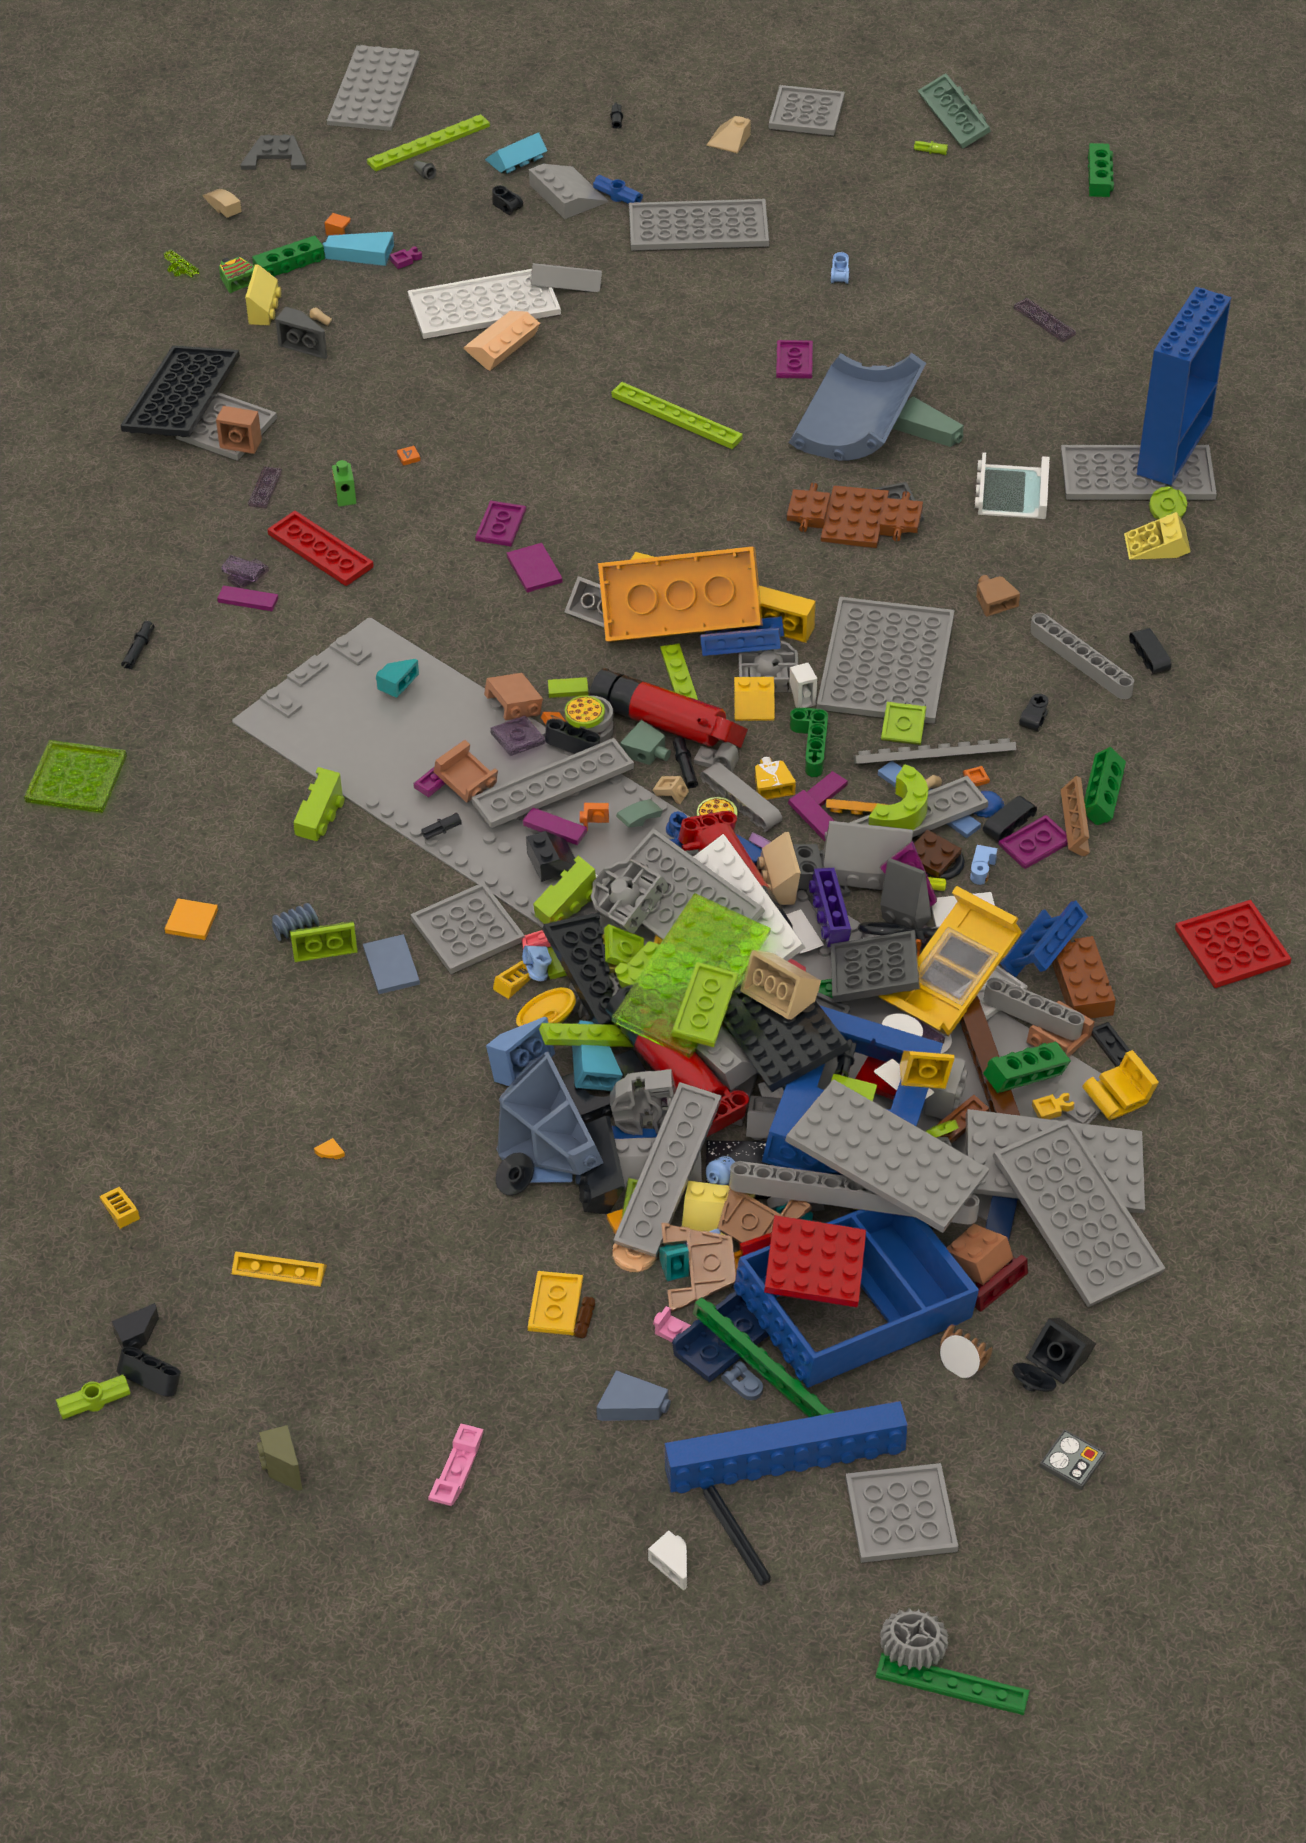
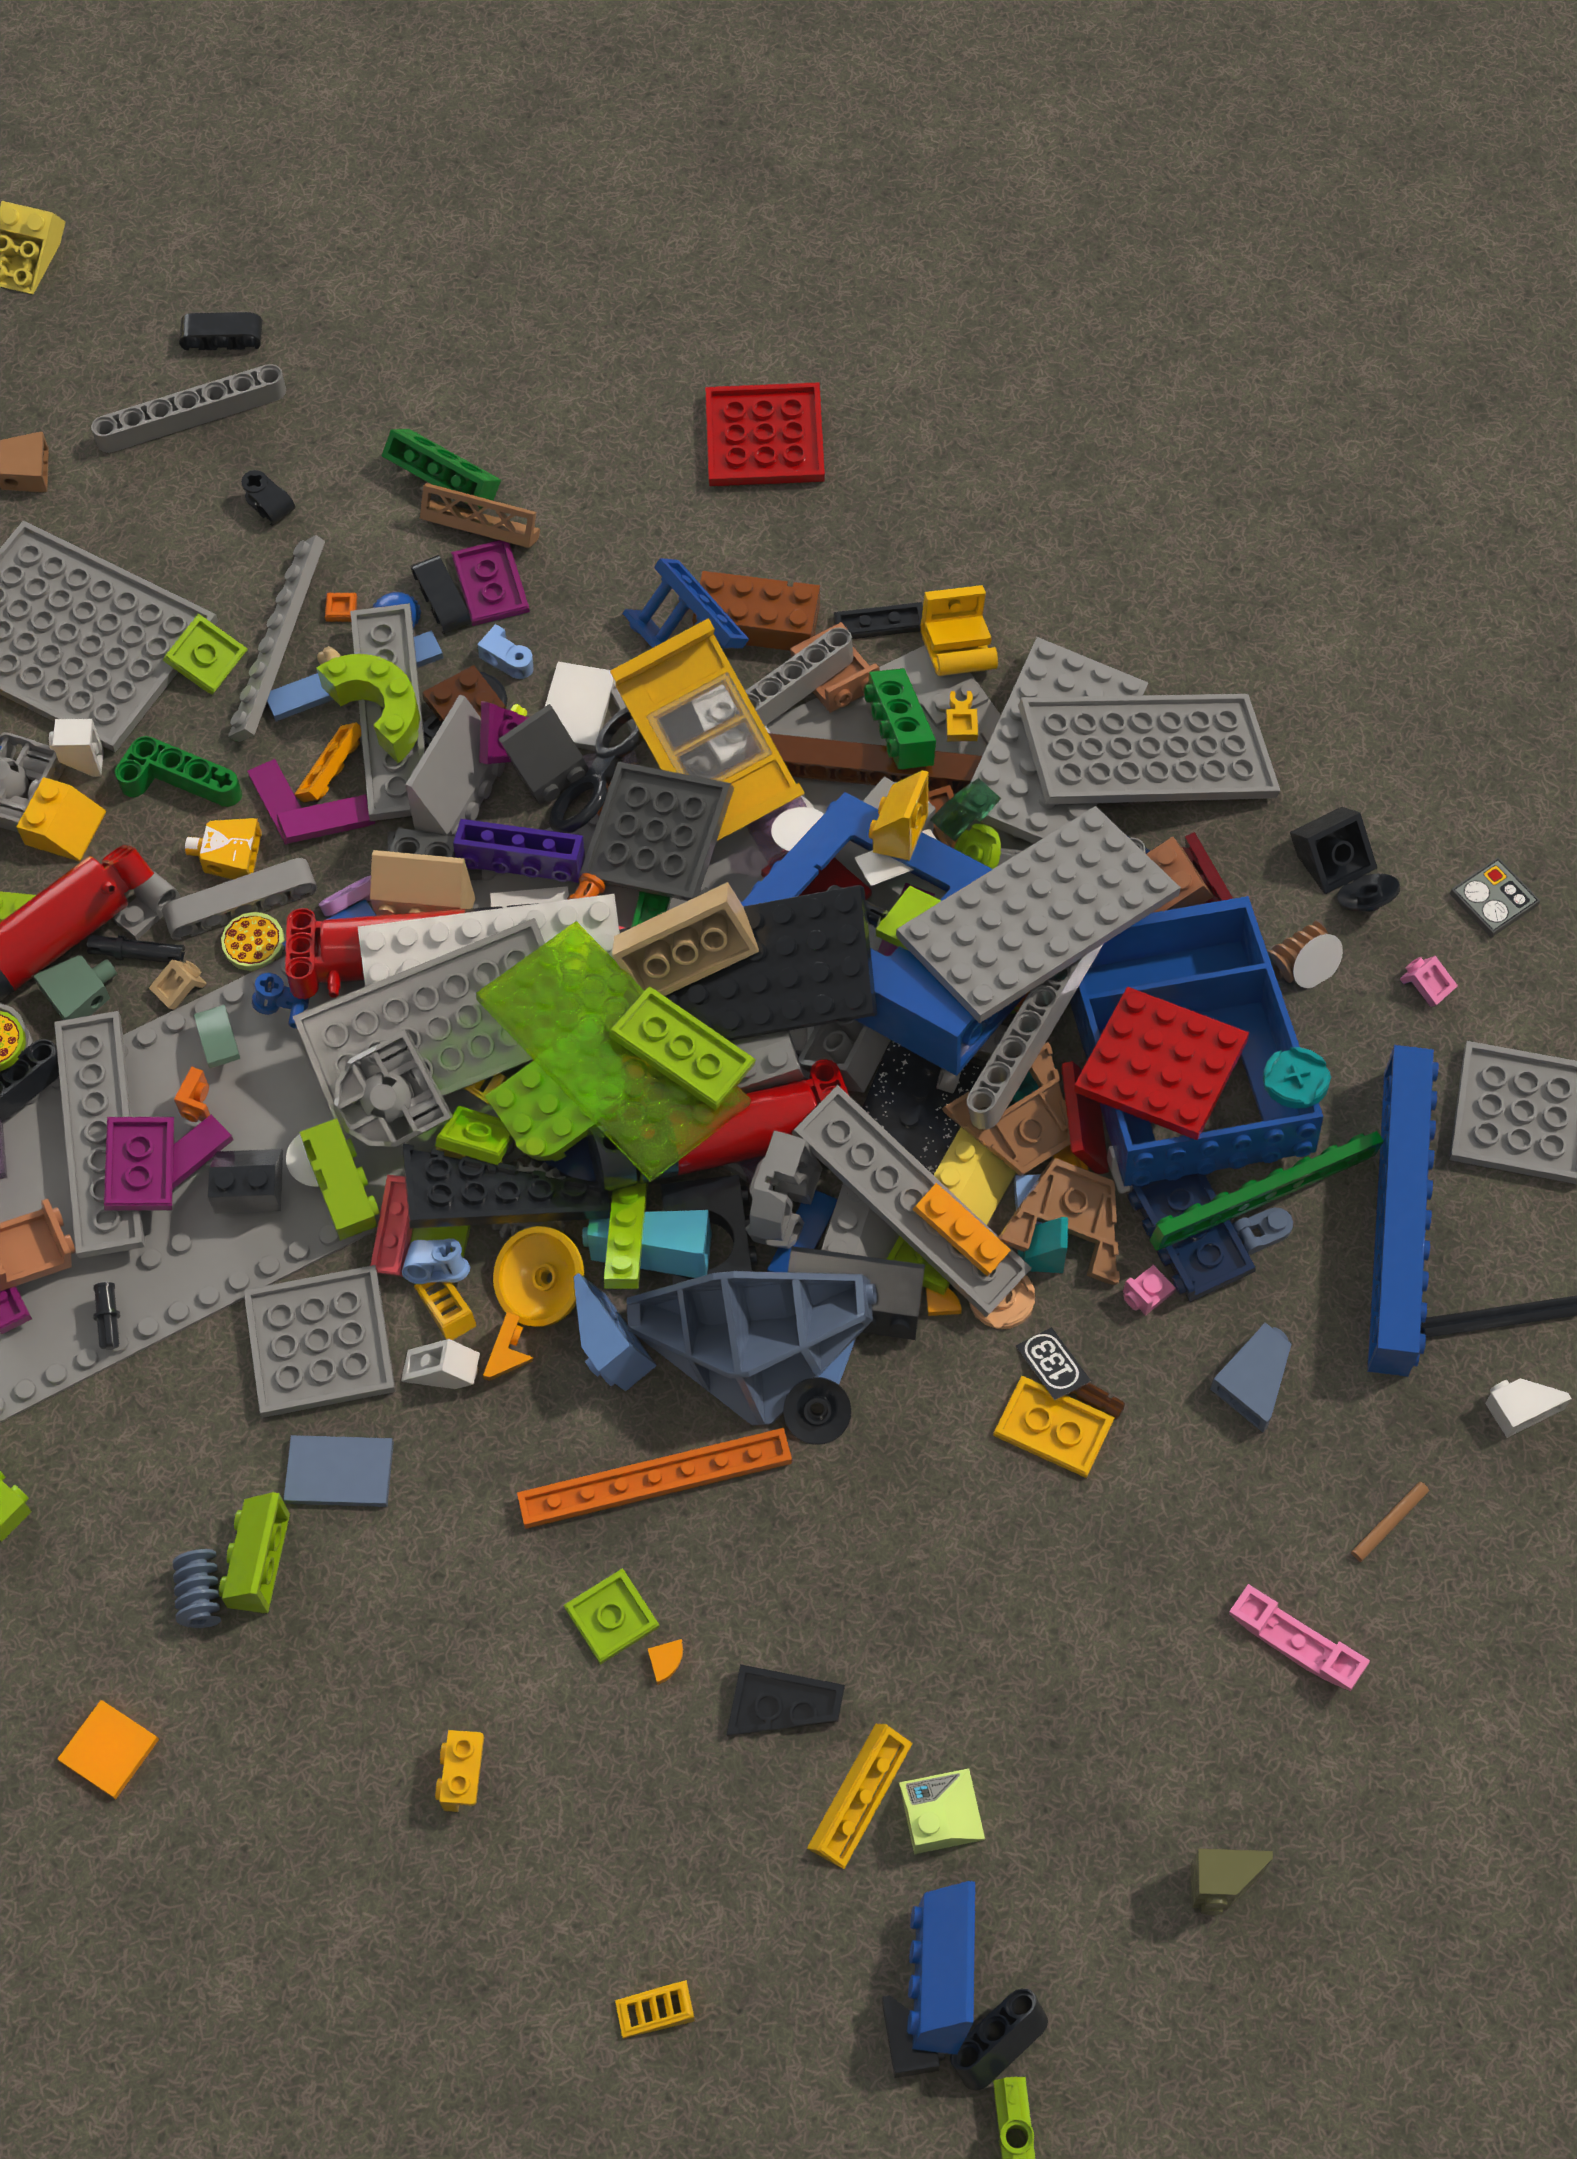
camera: 70 degrees left, 15 degrees up
(177, 1325) = (943, 1968): none -> blue slope
(226, 1068) = (461, 1769): none -> yellow bracket
(279, 1308) = (941, 1811): none -> yellowish green slope
(322, 1211) = (781, 1701): none -> black wing
(348, 1117) = (611, 1616): none -> lime tile
(442, 1110) = (654, 1478): none -> orange plate
(473, 988) = (441, 1365): none -> white slope
(491, 1010) = (502, 1358): none -> light orange slope
(538, 803) = (139, 1163): none -> magenta tile
(560, 1504) = (1388, 1523): none -> medium nougat bar
(597, 1288) = (1053, 1363): none -> black sticker
(659, 1200) = (961, 1229): none -> light orange plate
(719, 1170) = (927, 1137): light blue head -> none
(818, 951) = (588, 884): none -> orange bush
(836, 1336) = (1296, 1077): none -> teal tile
(961, 1109) = (961, 810): none -> clear green slope
(981, 1431) = (1429, 979): none -> bright pink bracket

